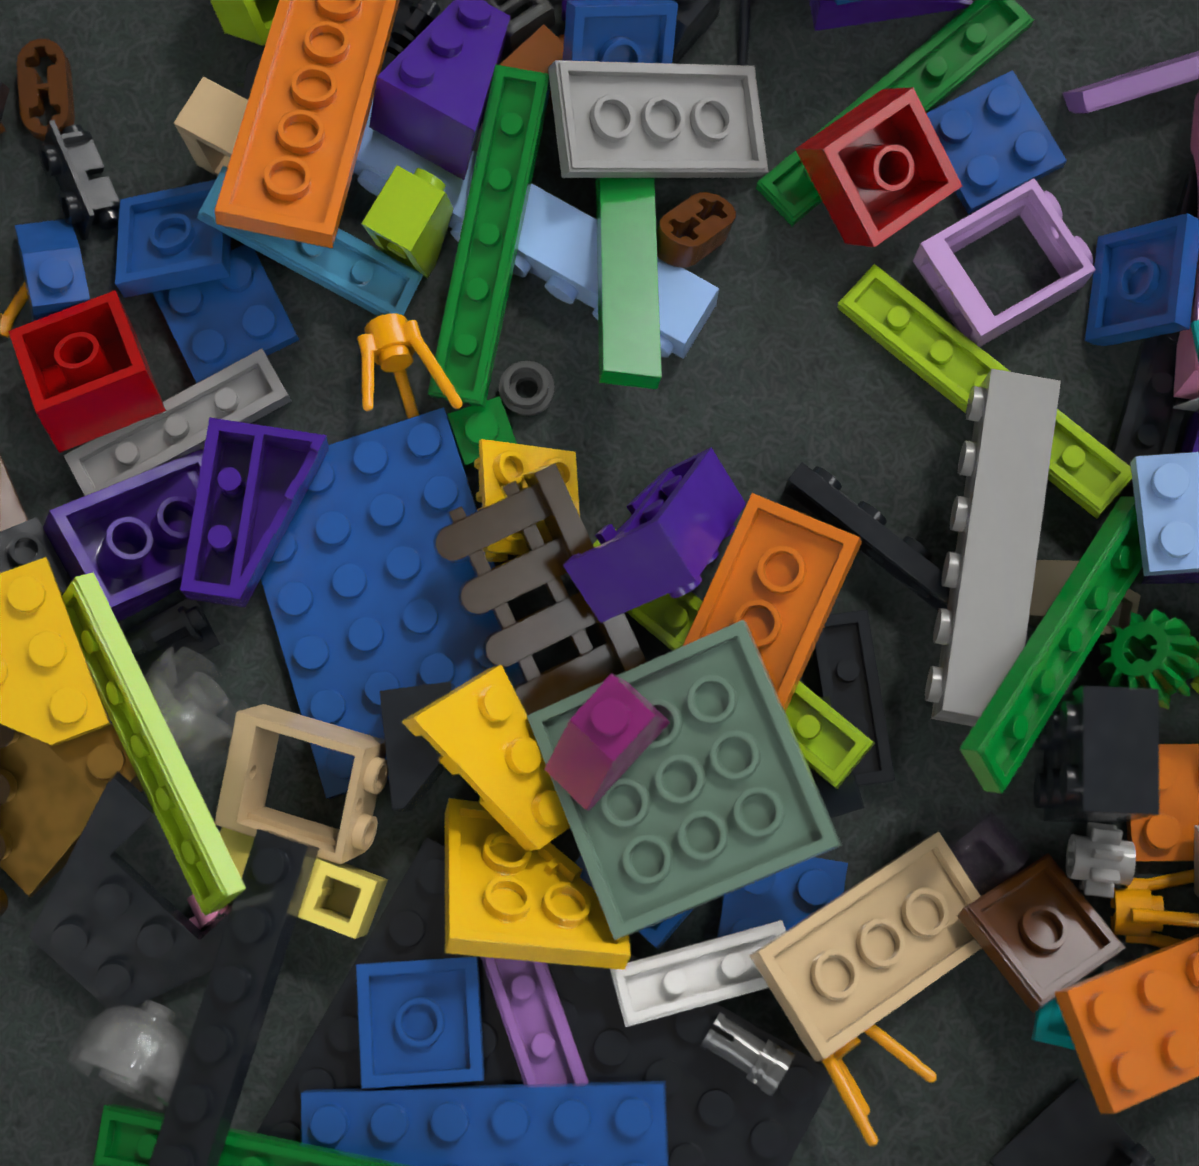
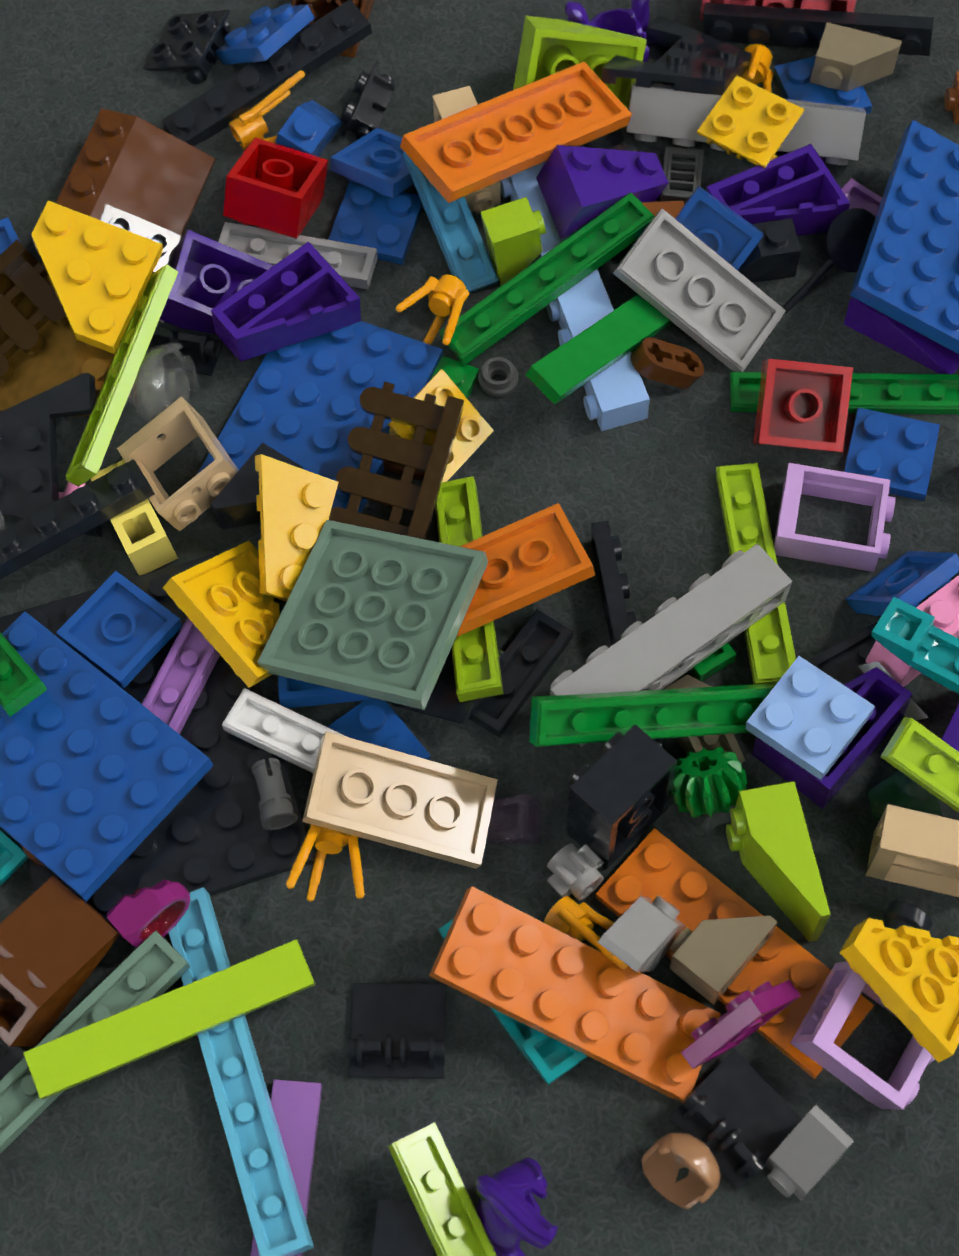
camera: 40 degrees right, 15 degrees down
(33, 90) = (388, 48): reddish brown beam -> none
(604, 740) = (352, 550): magenta slope -> none
(664, 542) = (484, 485): dark purple wedge -> none
(1040, 932) = (502, 868): reddish brown tile -> none

